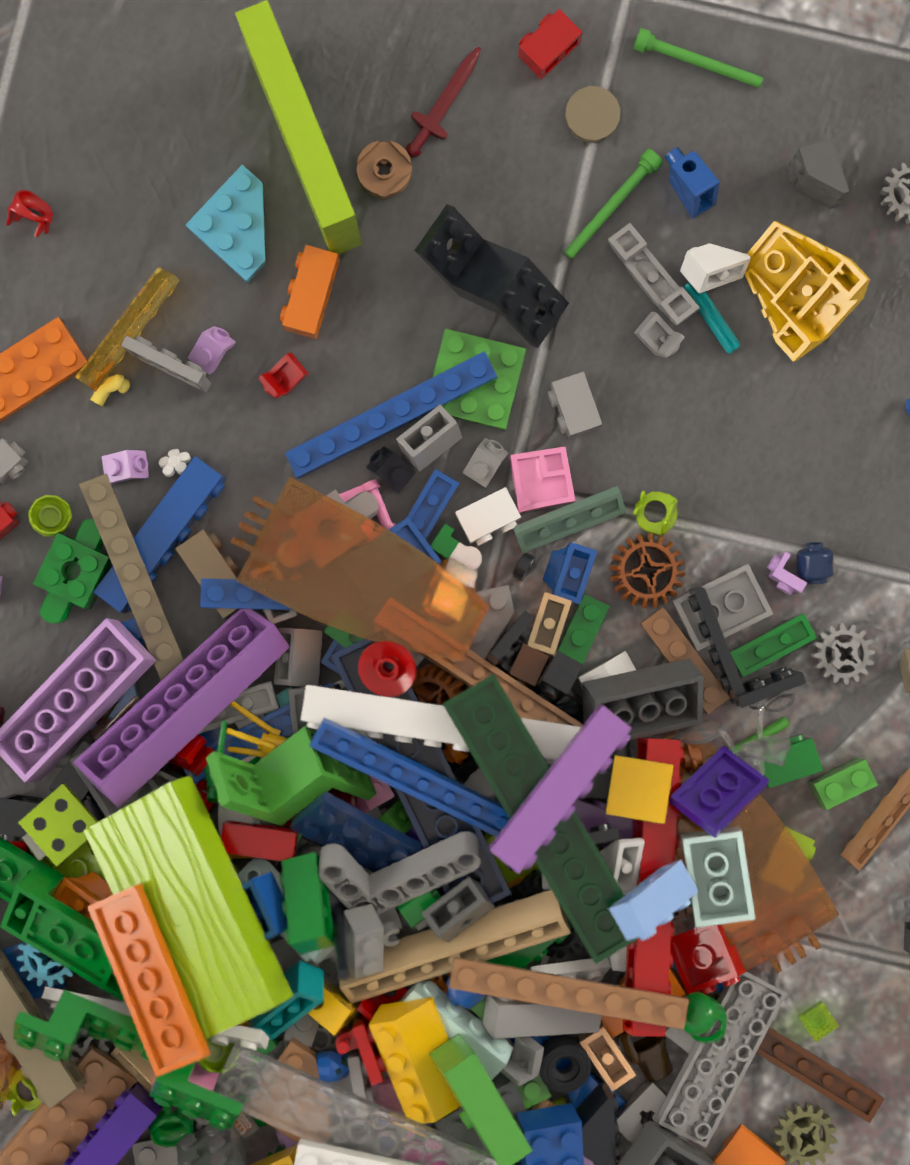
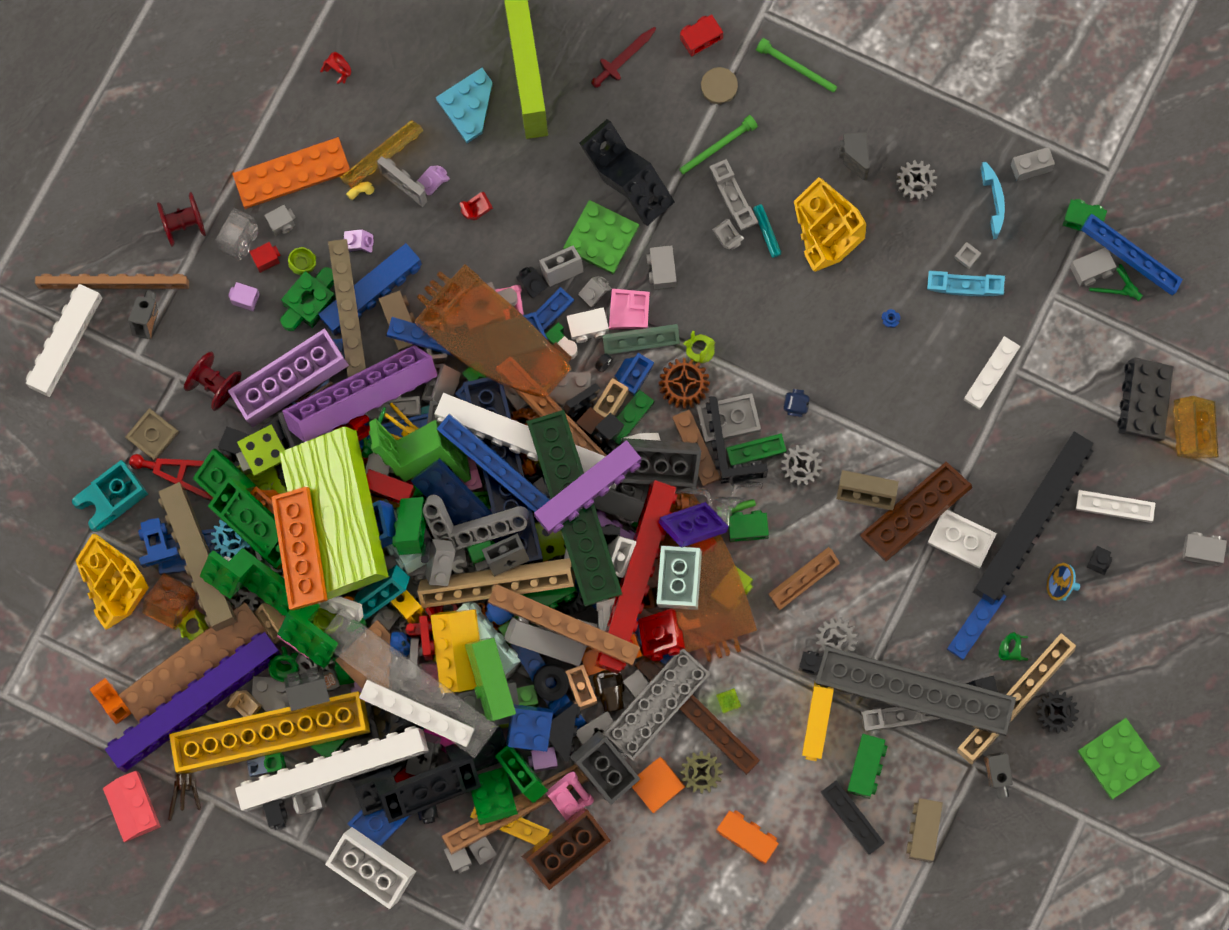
camera: 15 degrees right, 10 degrees down
(175, 461) = (390, 245): white plant -> none
(309, 291) = (506, 157): orange brick -> none
(381, 679) = (488, 395): red dish -> none
(384, 153) = (575, 80): medium nougat plate -> none
(391, 415) = (540, 246): blue plate -> none
(525, 1061) = (527, 670): light grey bracket -> none
(639, 789) = (641, 509): yellow tile -> none
(654, 901) = (632, 574): light blue brick -> none
(692, 181) = (773, 142): blue torso -> none
(701, 1016) = (644, 665): green helmet -> none
(713, 266) = (774, 198): white slope -> none
(786, 581) = (775, 411): lavender bracket -> none
(842, 783) = (780, 548): bright green brick -> none

